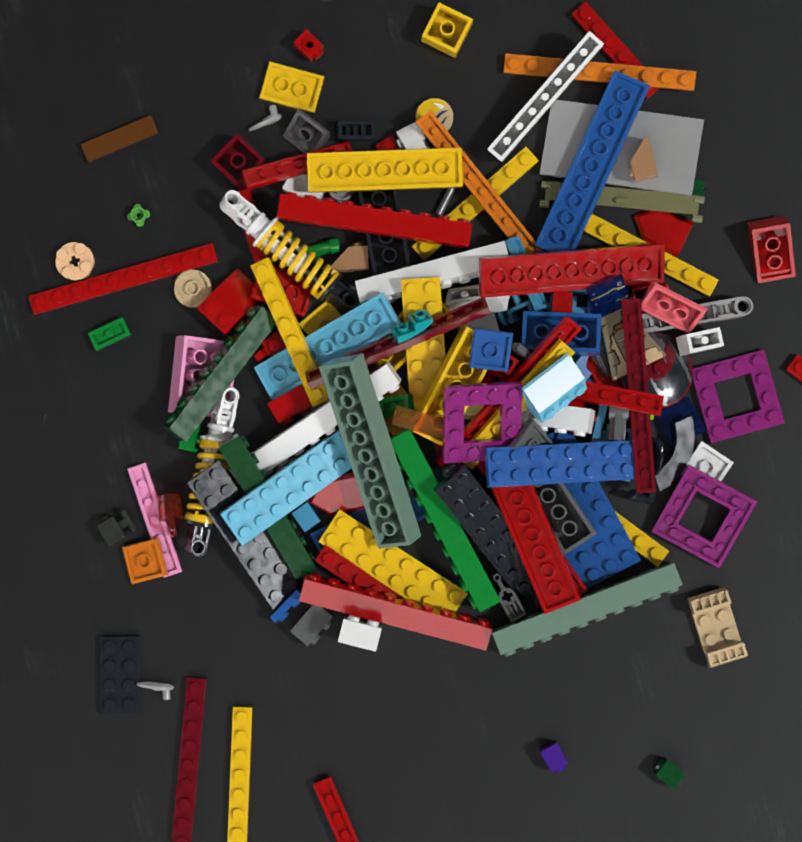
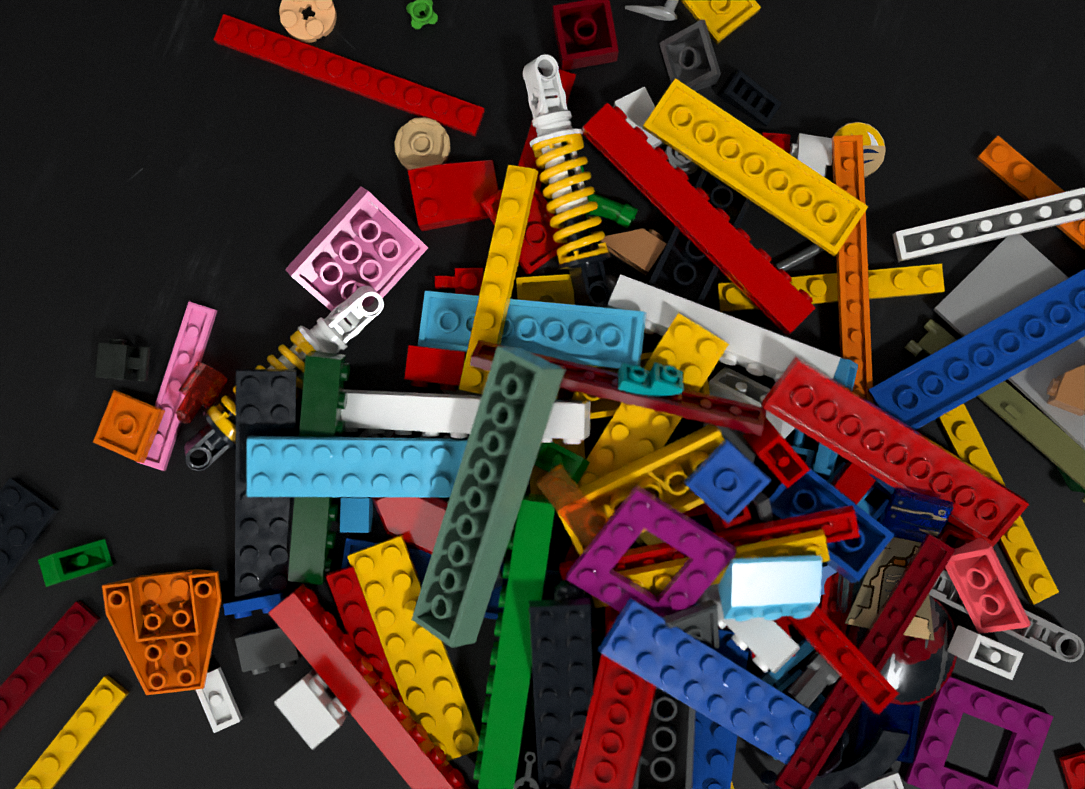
camera: 40 degrees right, 0 degrees up
(109, 334) = (284, 127): green plate -> none
(157, 686) = (34, 586): light grey bar -> none
(171, 656) = (75, 562): none -> green slope
(192, 442) = (287, 320): green brick -> none
(220, 373) = (377, 267): dark green brick -> none
(248, 652) = (166, 626): none -> orange wedge
(285, 168) = (628, 76): red tile -> none
(304, 673) = (218, 701): none -> white plate
(447, 30) = (949, 56): yellow brick -> none
(508, 316) = (777, 454): none -> red brick
(663, 228) = (1037, 481): red tile -> none

